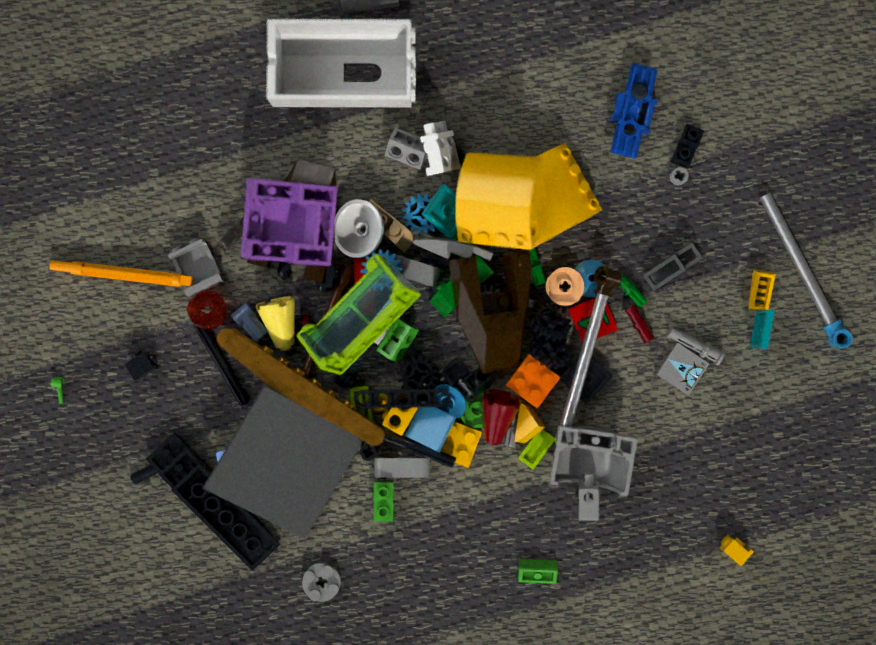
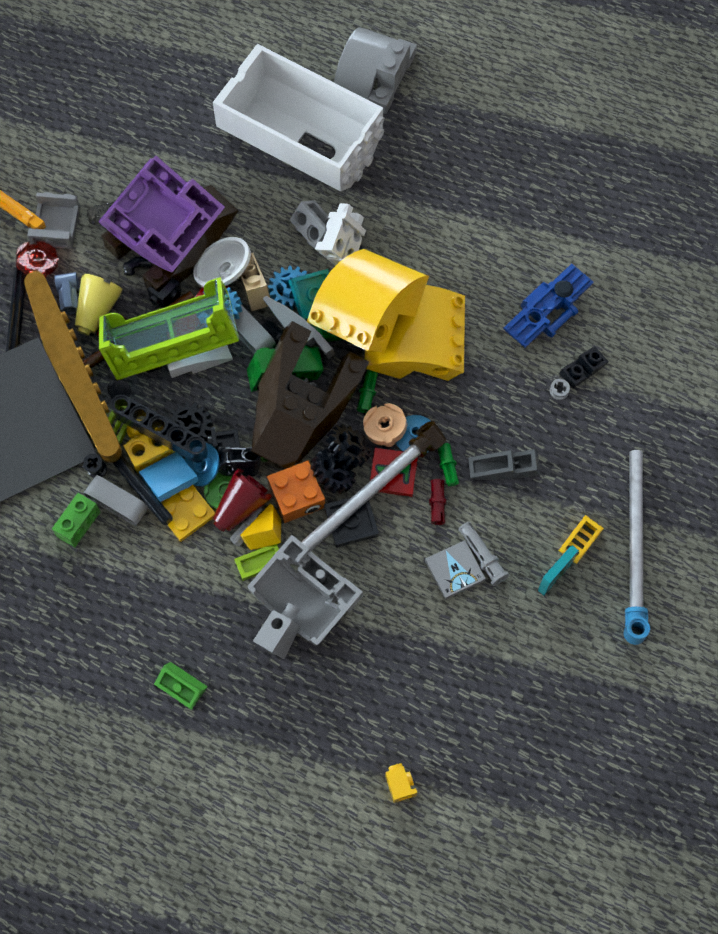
camera: 30 degrees right, 20 degrees down
(397, 340) = (191, 380): bright green brick -> none

